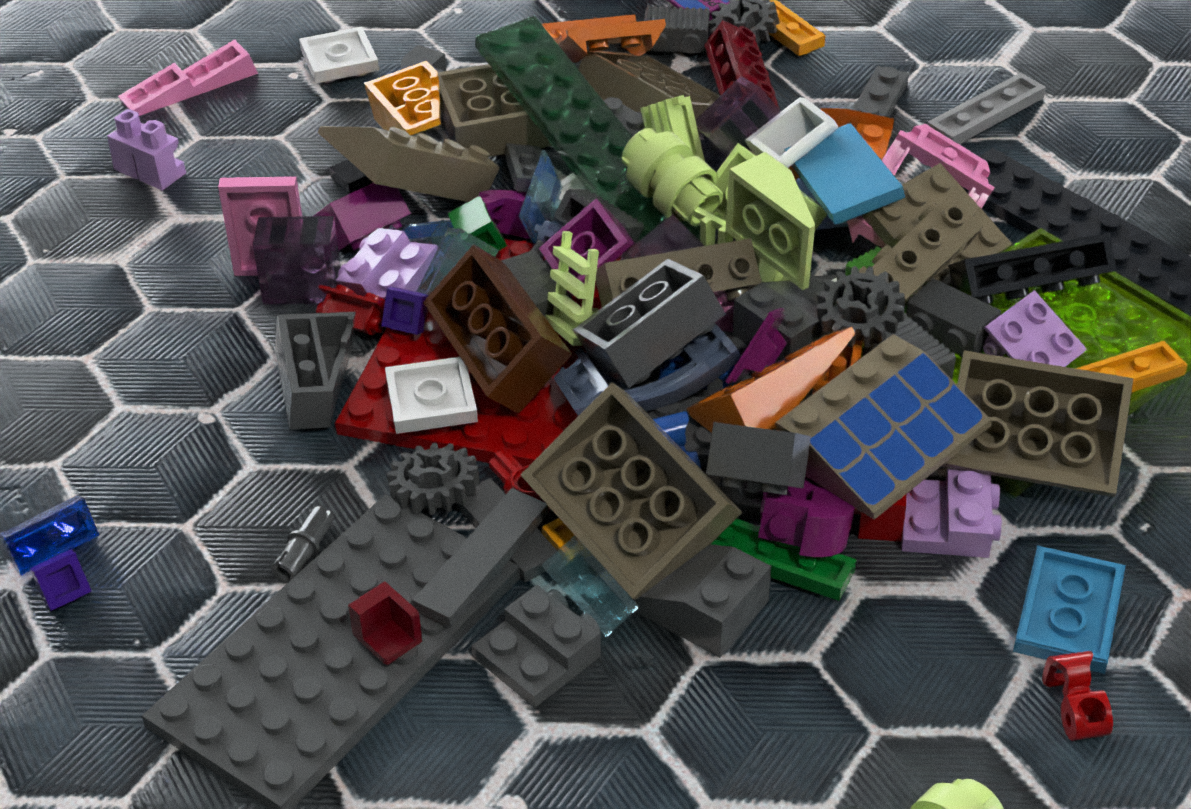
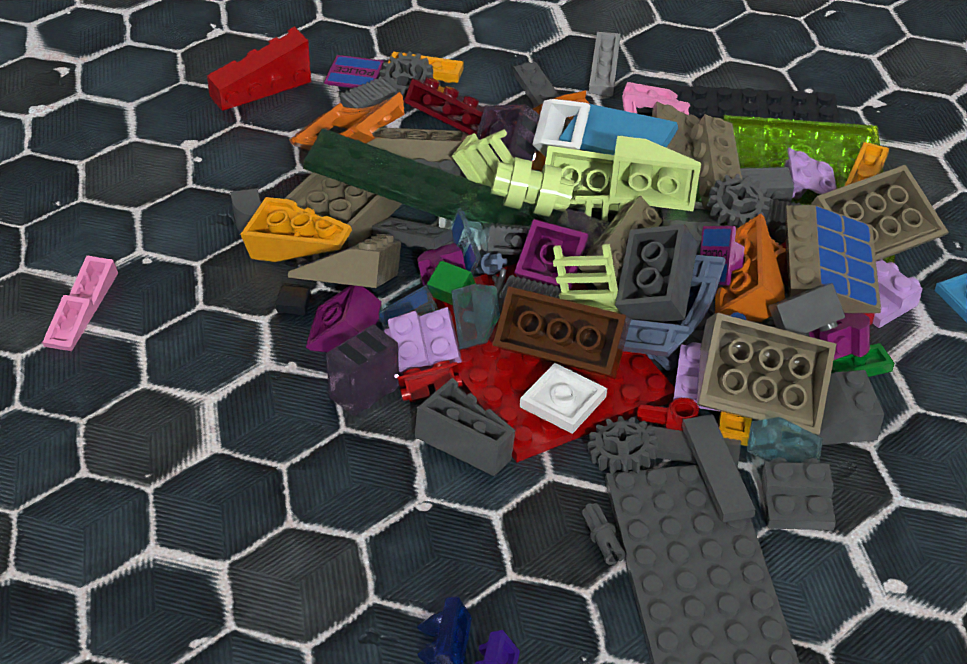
camera: 45 degrees left, 0 degrees up
(144, 151) = (131, 360): lavender hips -> none
(246, 200) = (311, 352): bright pink plate -> none
(339, 55) = (168, 228): white plate -> none
(385, 623) = (730, 536): dark red panel -> none
(404, 310) = (478, 358): dark purple tile -> none
(1034, 267) = (770, 133): black brick -> none

